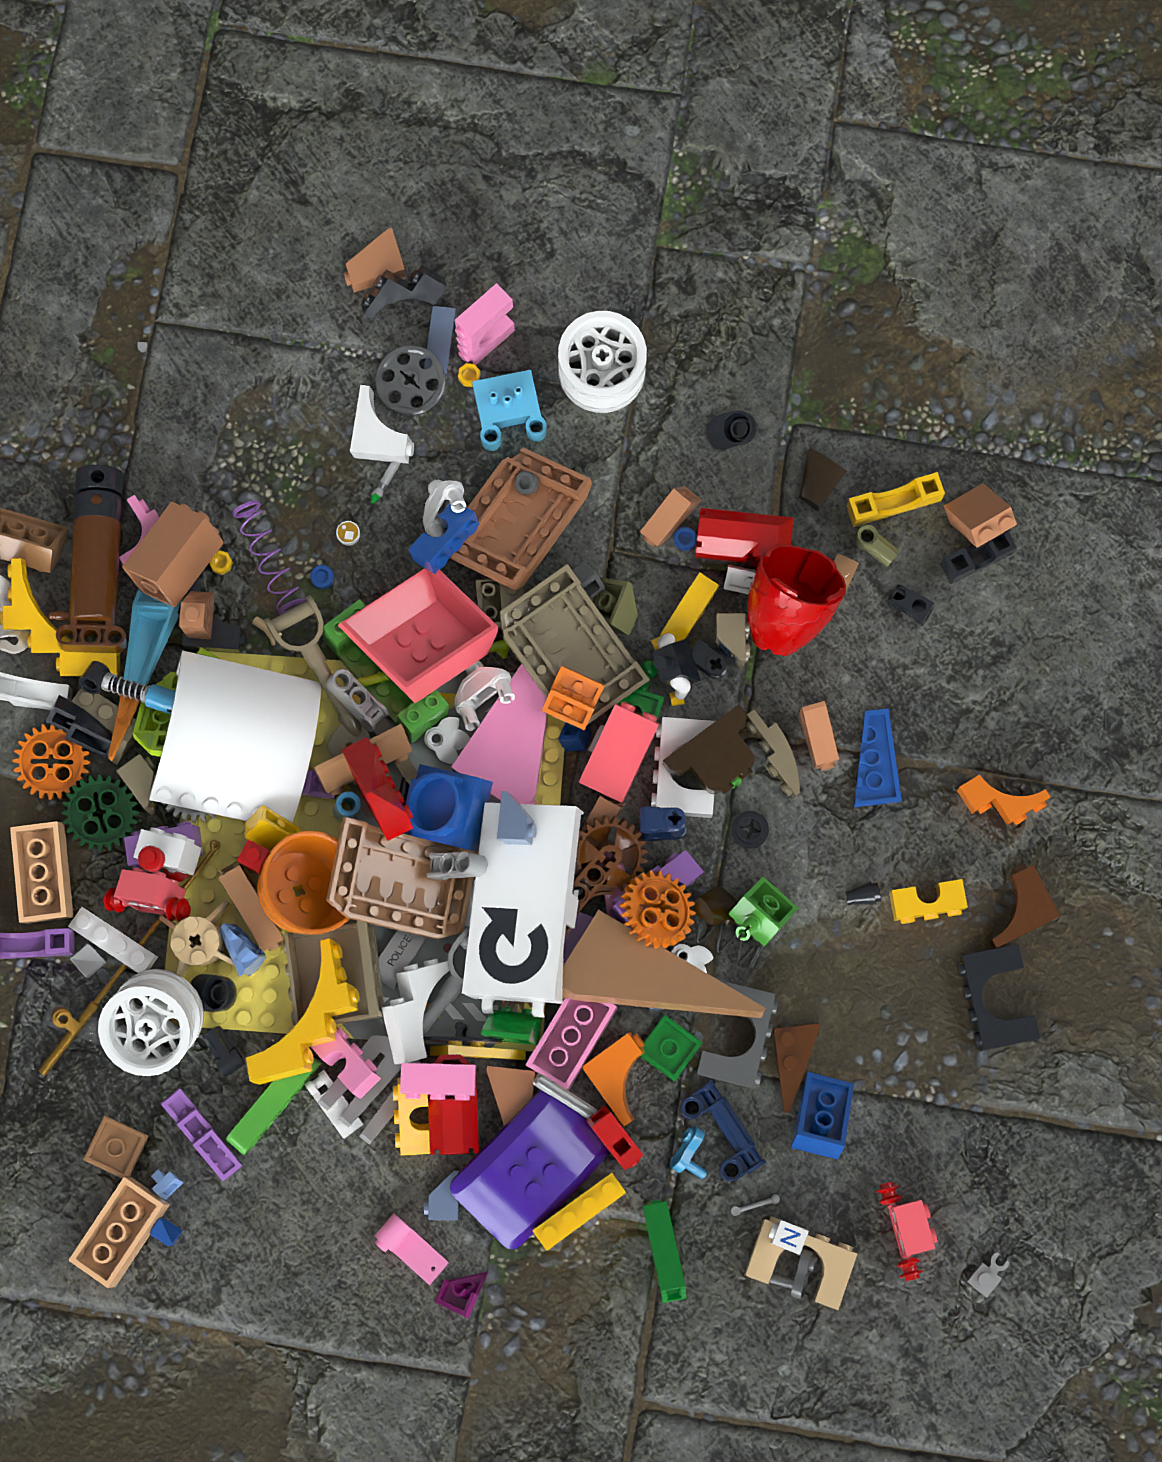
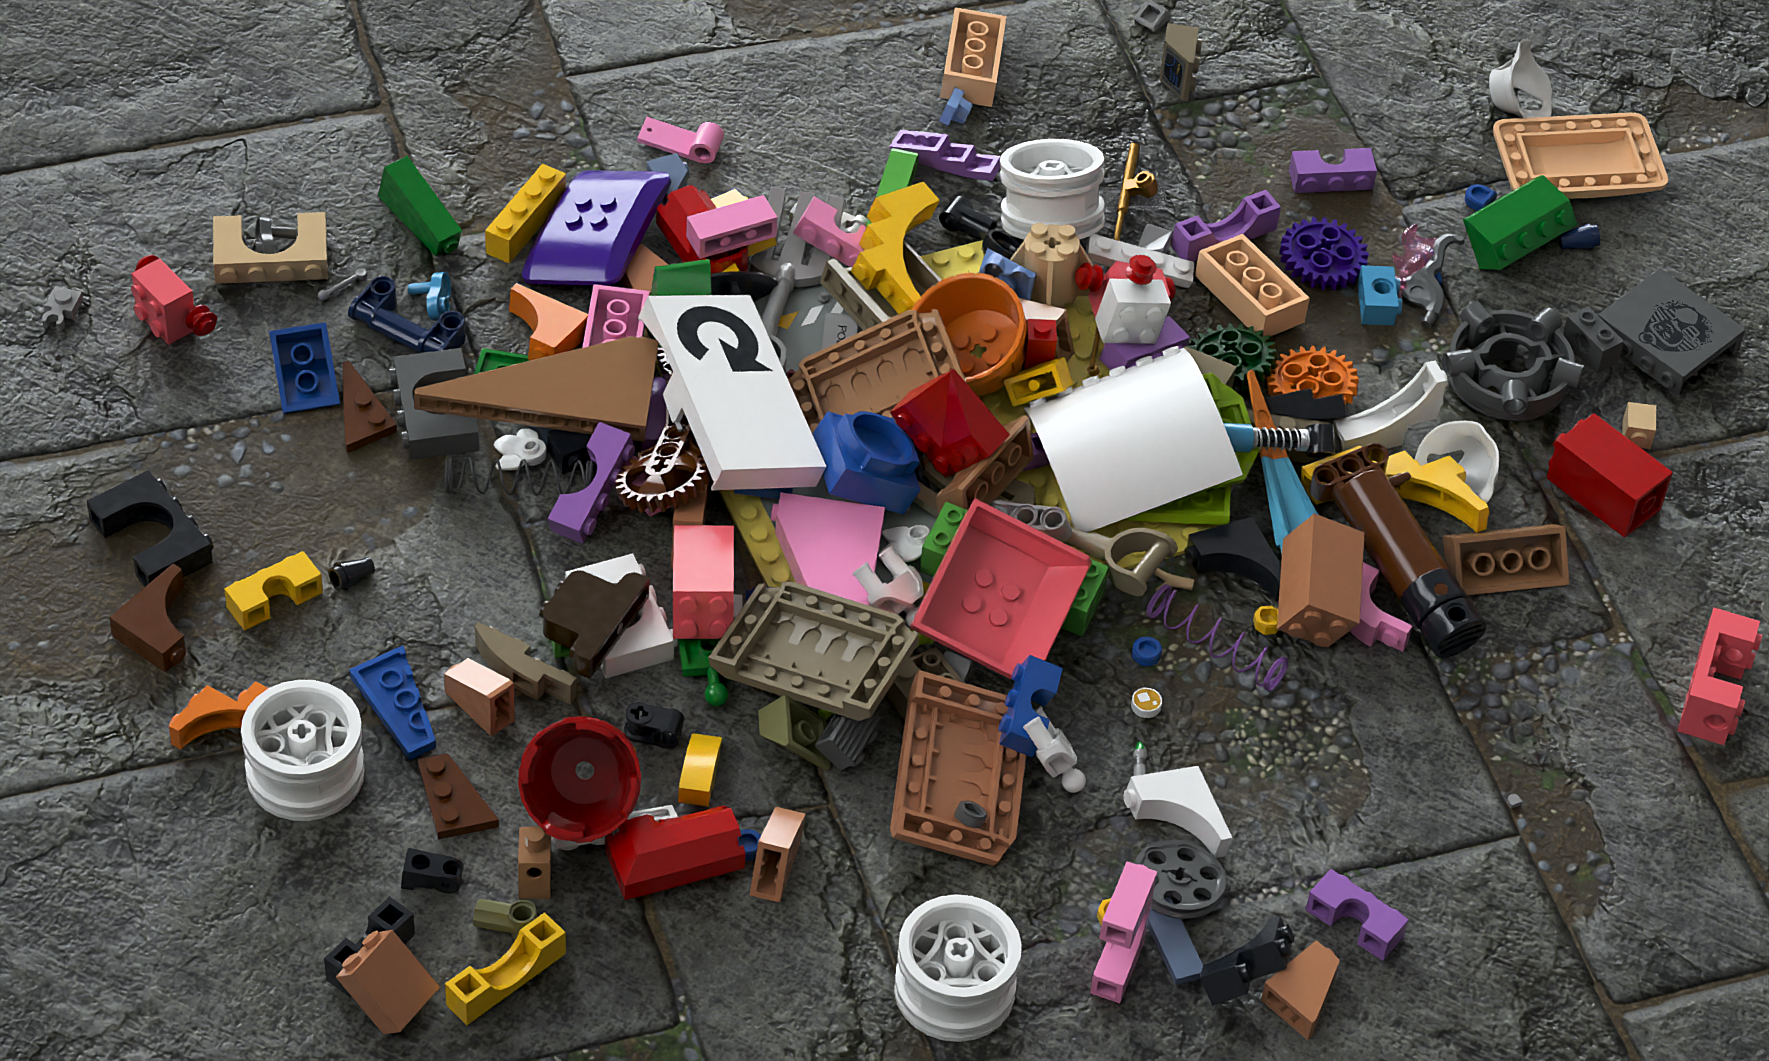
camera: 150 degrees right, 30 degrees down
(115, 1147) = (1021, 119): medium nougat plate -> none
(166, 1232) = (929, 75): blue slope -> none
(197, 615) = (1253, 526): nougat slope -> none
(315, 318) = (1339, 897): none -> medium lavender arch
(406, 1014) = (799, 284): white arch -> none
(456, 865) = (817, 398): light grey piece -> none
(461, 1293) = (609, 121): magenta slope -> none
(505, 403) = (1048, 897): medium azure piece -> none
(514, 822) = (781, 439): sand blue slope -> none
(564, 1095) = (585, 280): light grey axle -> none
(572, 697) = (786, 597): orange slope -> none
(614, 1138) = (527, 269): red brick -> none
(657, 823) = (618, 492): dark blue piece -> none
(657, 929) = (589, 463): orange gear -> none
(675, 665) = (690, 688): black torso -> none
(715, 906) = (510, 495): dark brown slope -> none
(730, 637) = (644, 736): dark tan slope -> none
(731, 429) = (750, 975): black cap -> none
(759, 824) = (525, 583): black gear -> none
(762, 912) = (477, 494): bright green brick -> none
(788, 1236) = (294, 244): white brick -> none
(819, 479) = (614, 966): dark brown slope -> none
(870, 661) = (453, 799): none -> reddish brown wing
(974, 695) = (303, 750): none -> white wheel

